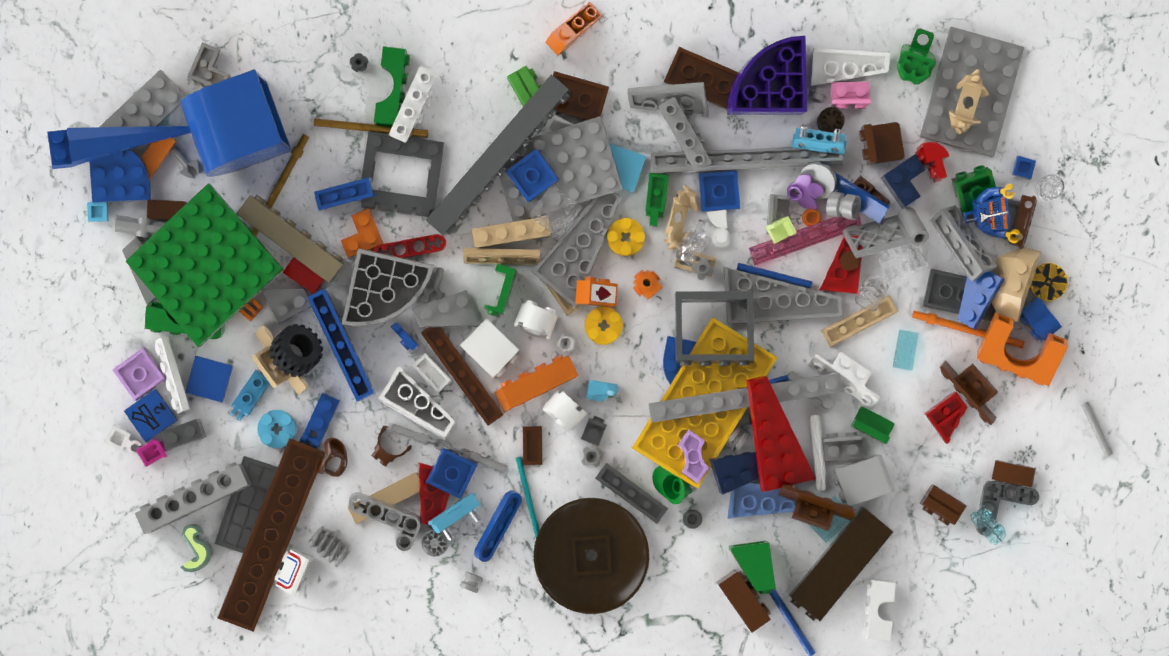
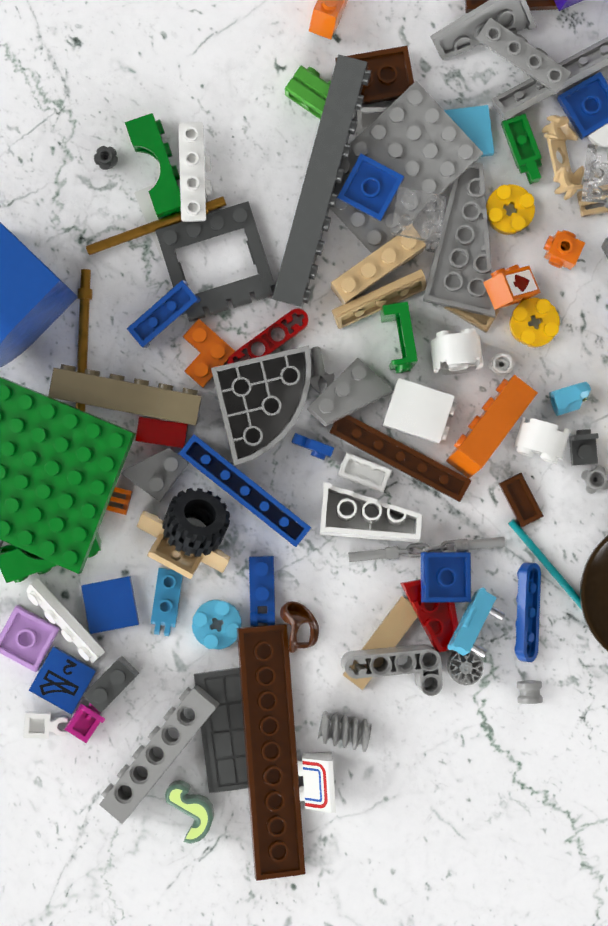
camera: 25 degrees left, 0 degrees up
(382, 454) = (356, 595): reddish brown helmet -> none

